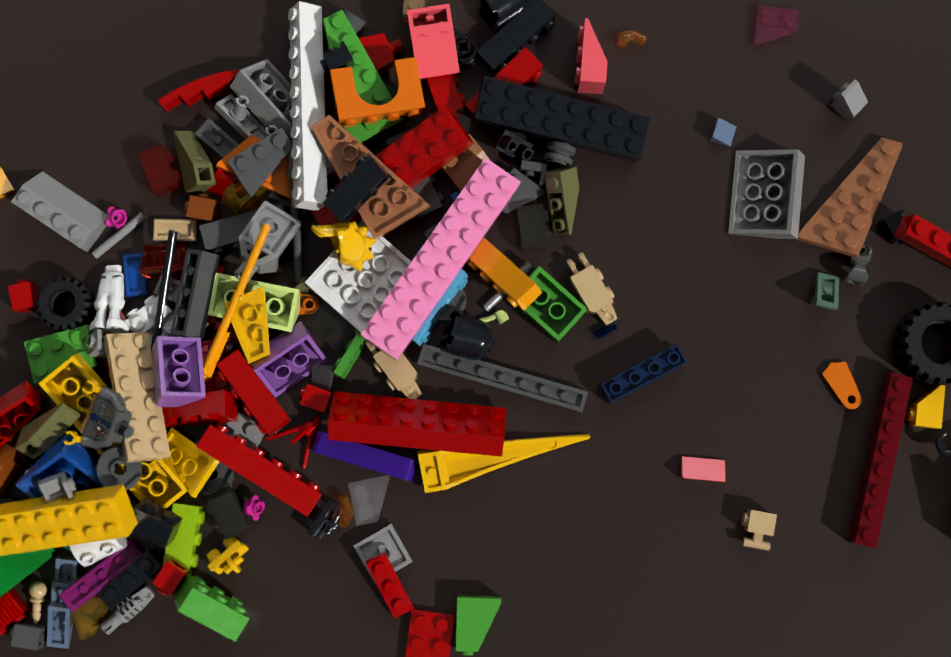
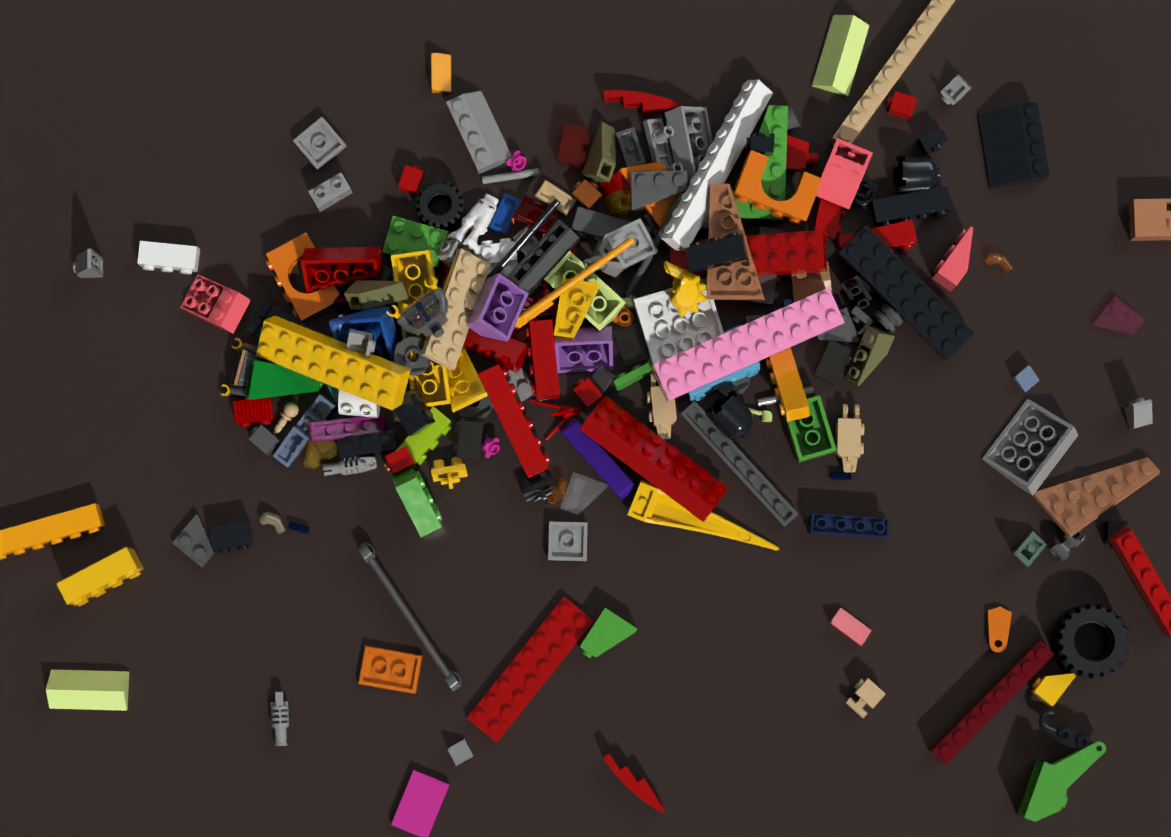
camera: 25 degrees right, 0 degrees up
(389, 584) = (559, 567): red plate -> none

